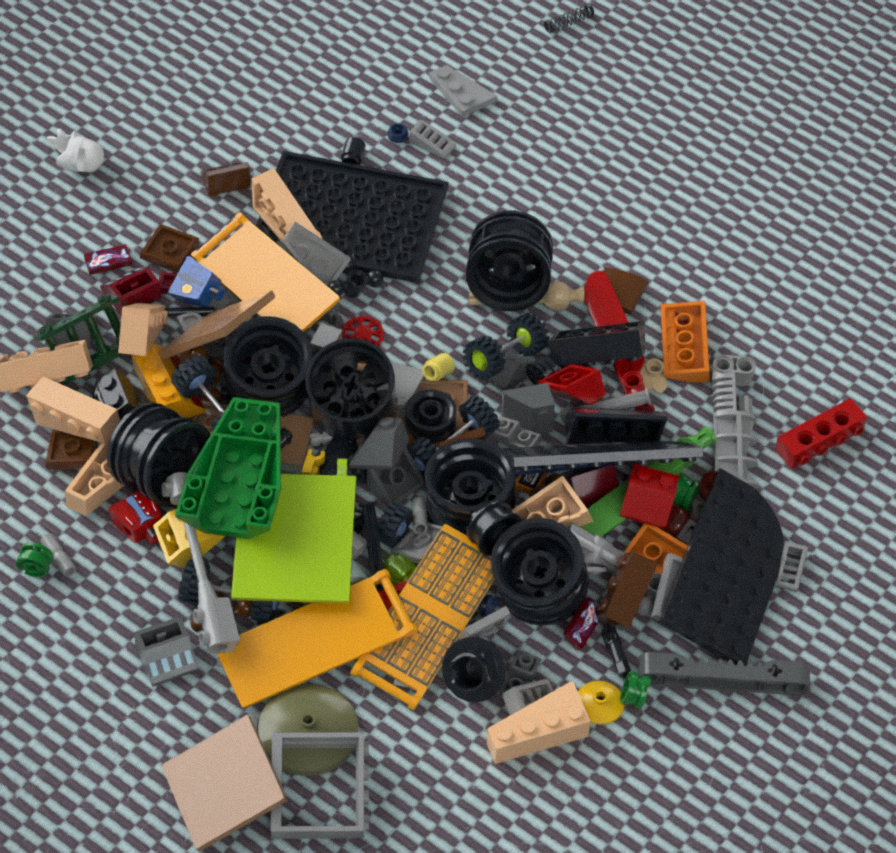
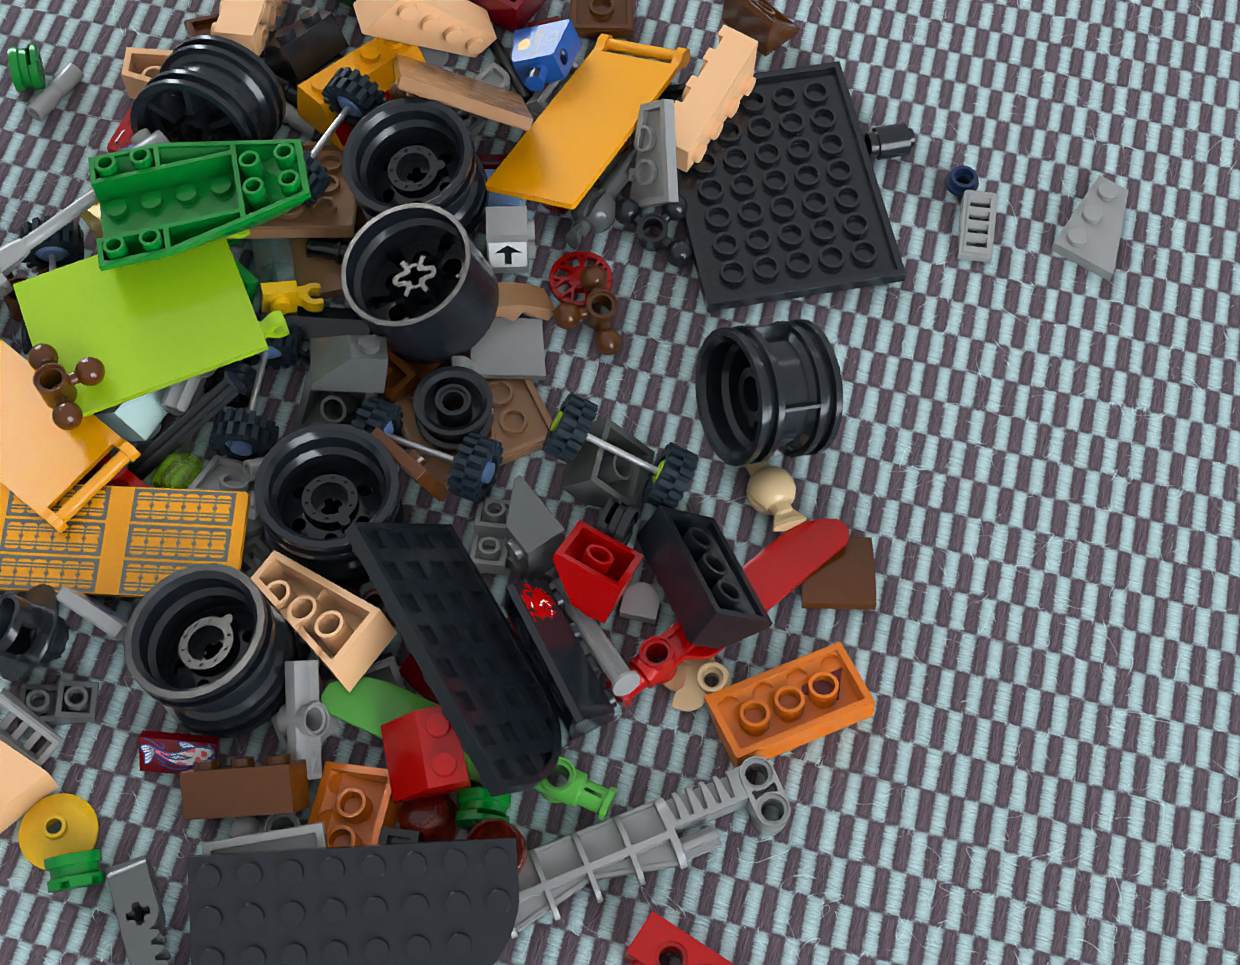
camera: 65 degrees right, 10 degrees up
(329, 567) = (88, 371): none -> reddish brown piece
(394, 331) = (569, 315): none -> reddish brown piece
(438, 367) = (554, 386): light yellow brick -> none
(490, 524) = (249, 549): black wheel -> none
(616, 651) = (149, 821): black piece -> none

